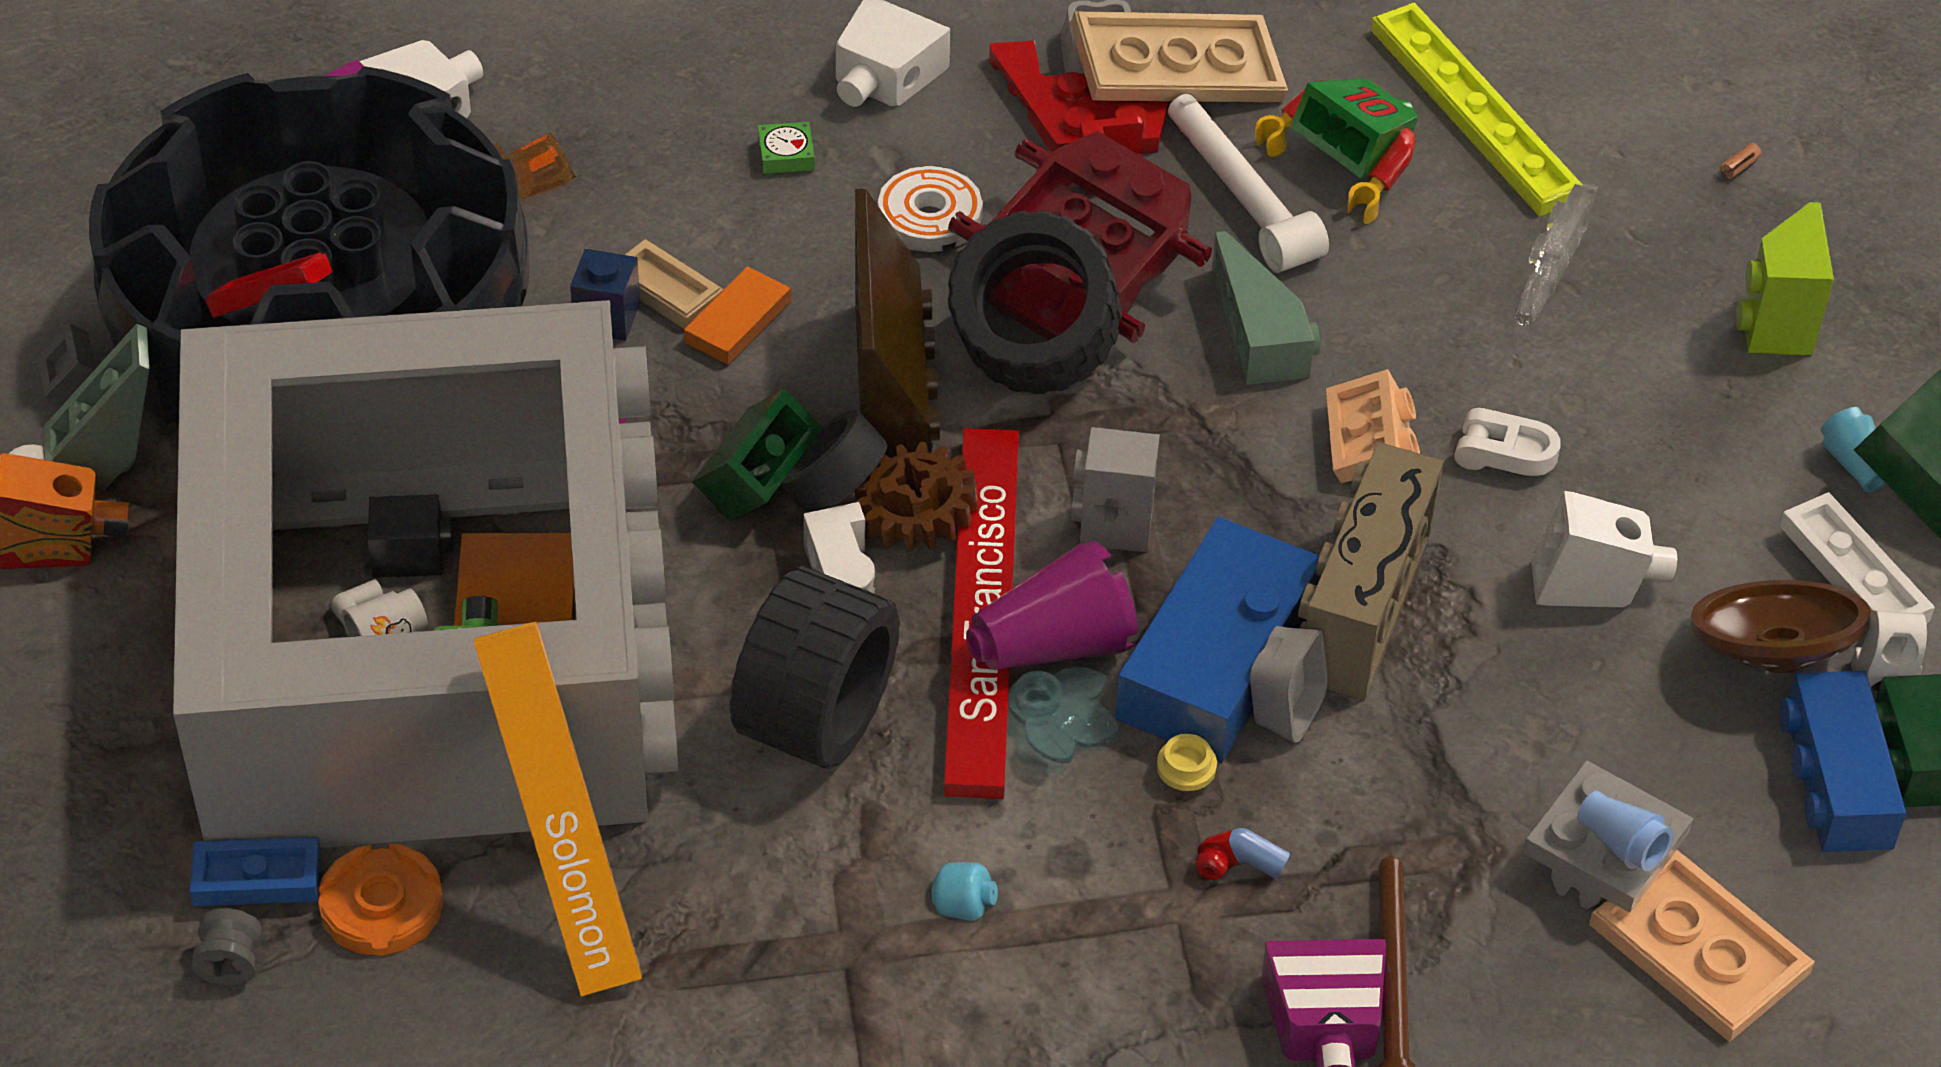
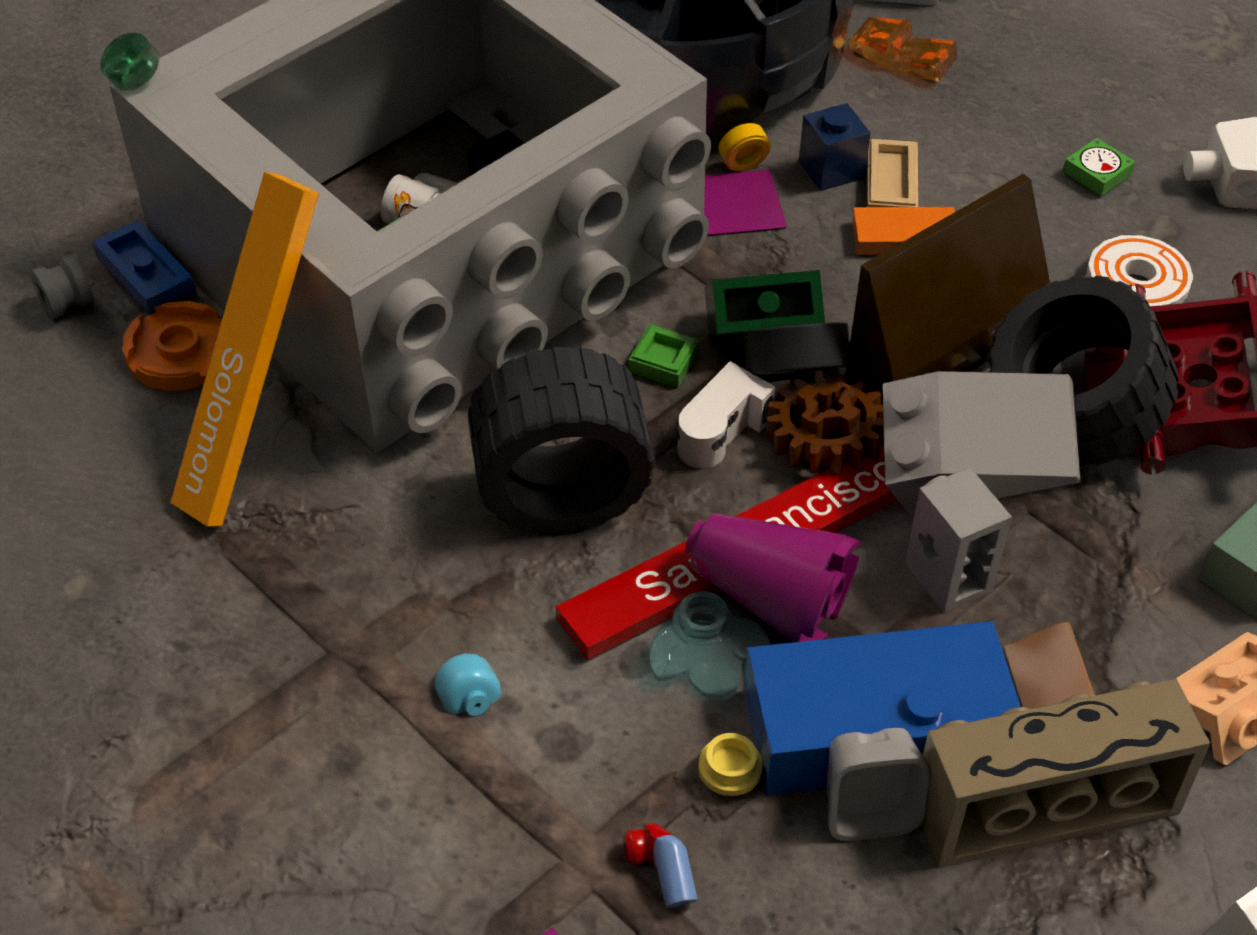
camera: 55 degrees right, 0 degrees up
(179, 676) = (129, 61): none -> clear green tile
(727, 560) = (663, 356): none -> bright green tile
(1045, 403) = (1003, 425): none -> light grey slope
(1280, 516) = (1047, 667): none -> medium nougat slope

